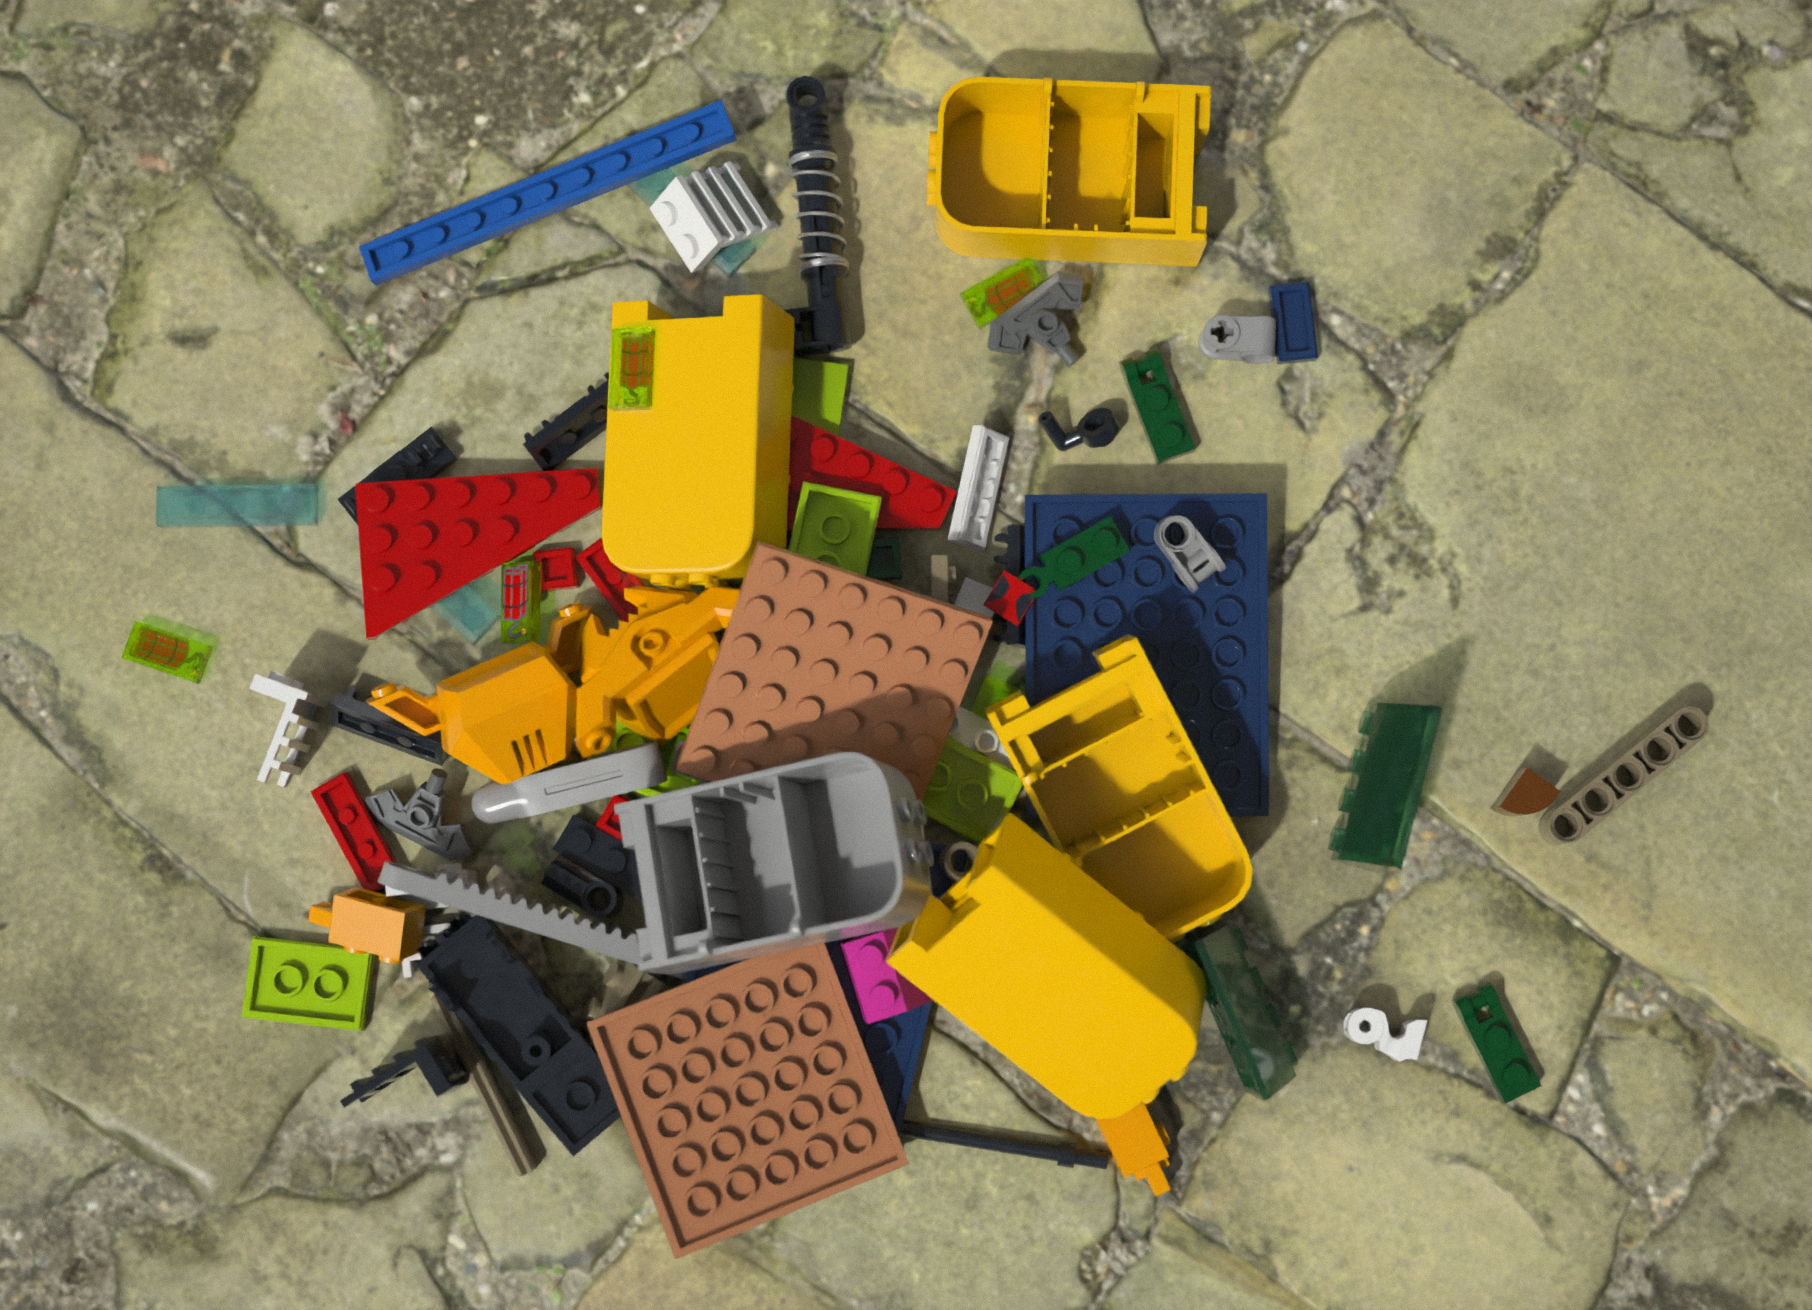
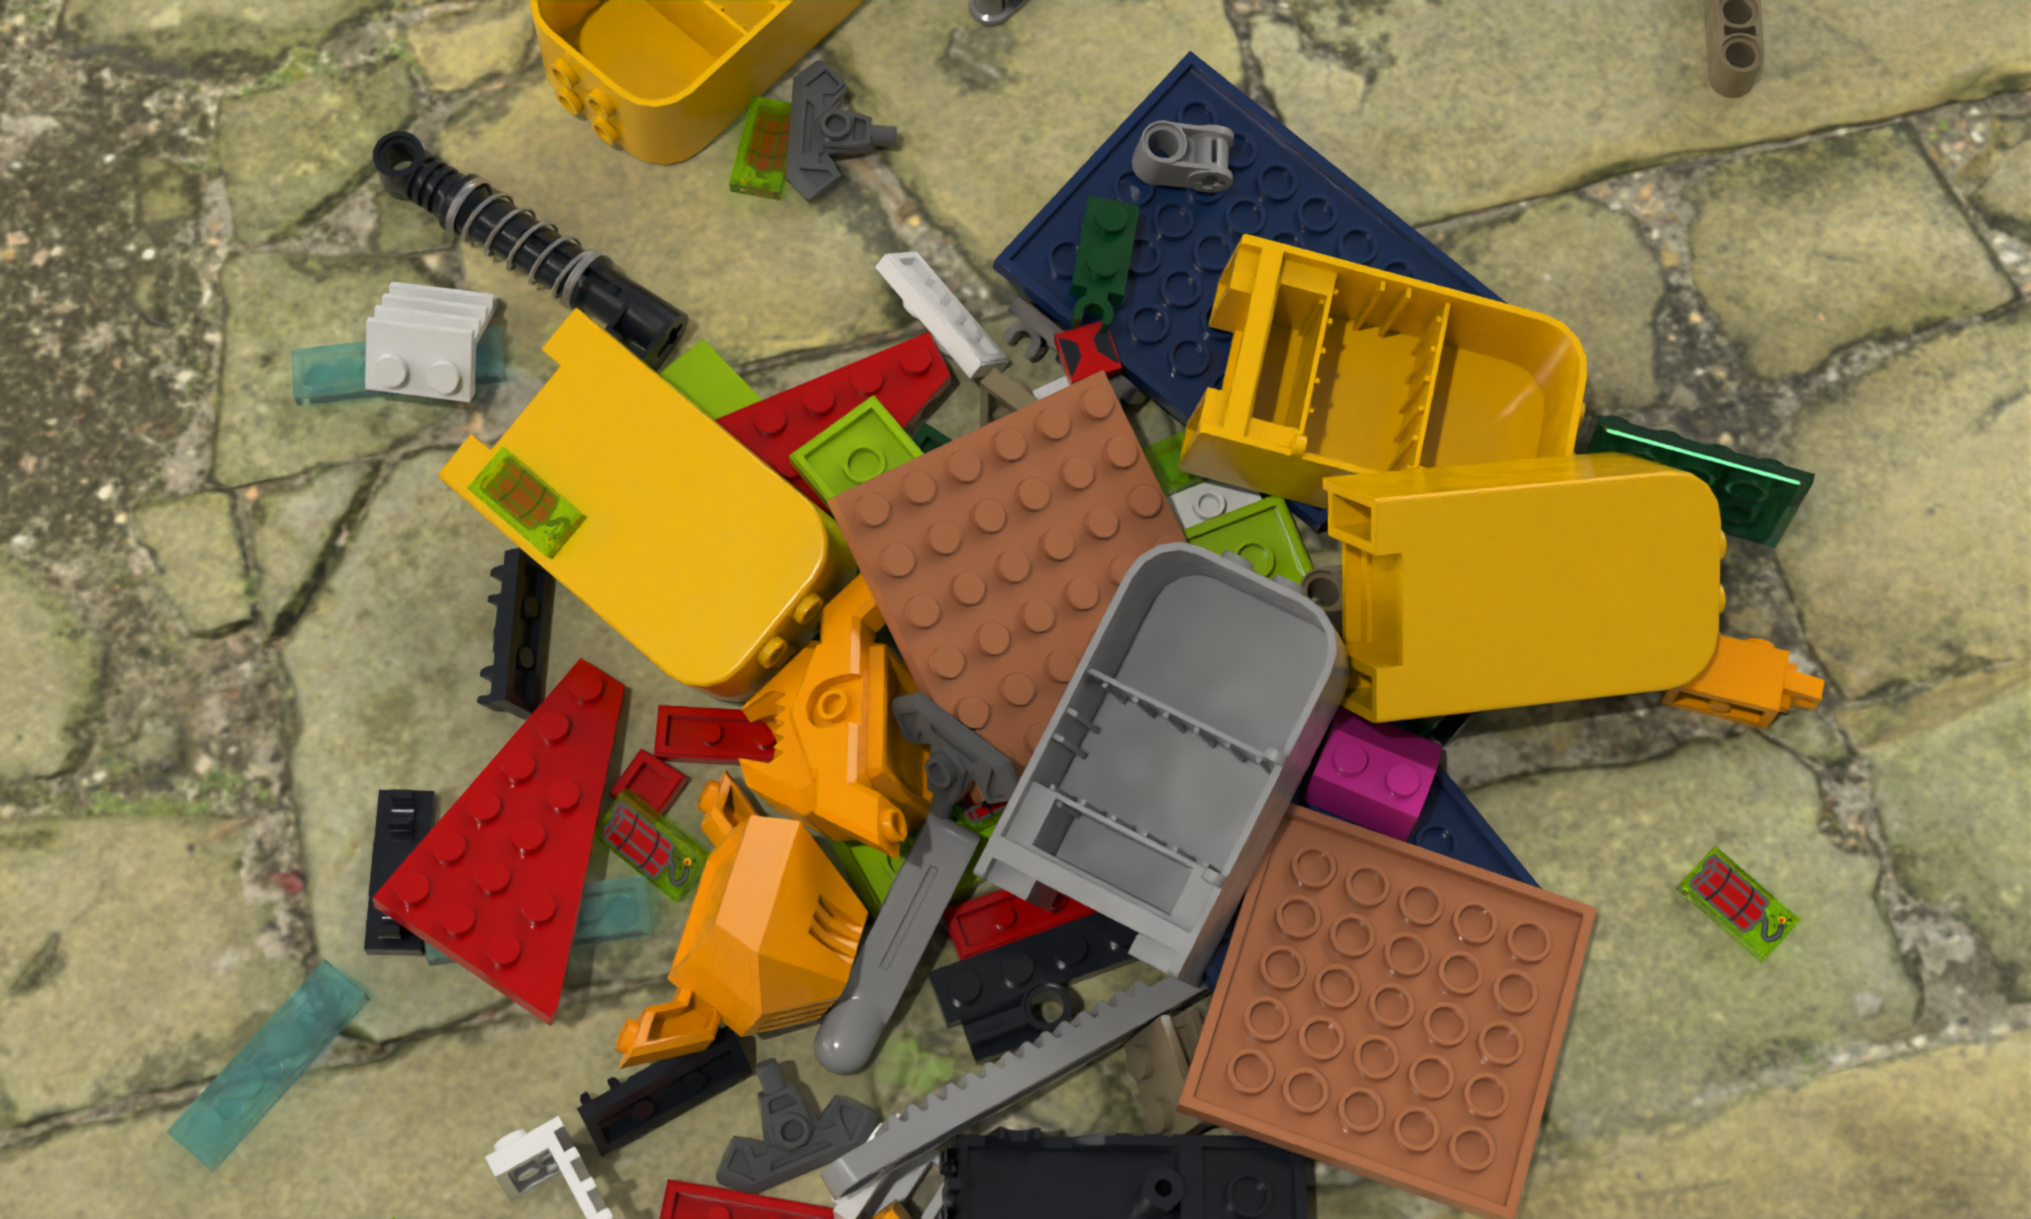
camera: 55 degrees left, 15 degrees down
(548, 193) = (249, 480): blue plate -> none
(679, 736) = (955, 755): none -> dark grey piece
(992, 1239) = (1738, 904): none -> tile
(1065, 1154) = (1701, 765): black bar -> none
(1094, 429) = (980, 168): black plate -> none
(1157, 407) = (1007, 100): dark green plate -> none
(1370, 1025) = (1805, 373): white leg -> none
(1384, 786) = (1575, 168): clear green slope -> none
(1496, 1044) = (1906, 284): dark green plate -> none
(1525, 794) = (1677, 72): reddish brown brick -> none

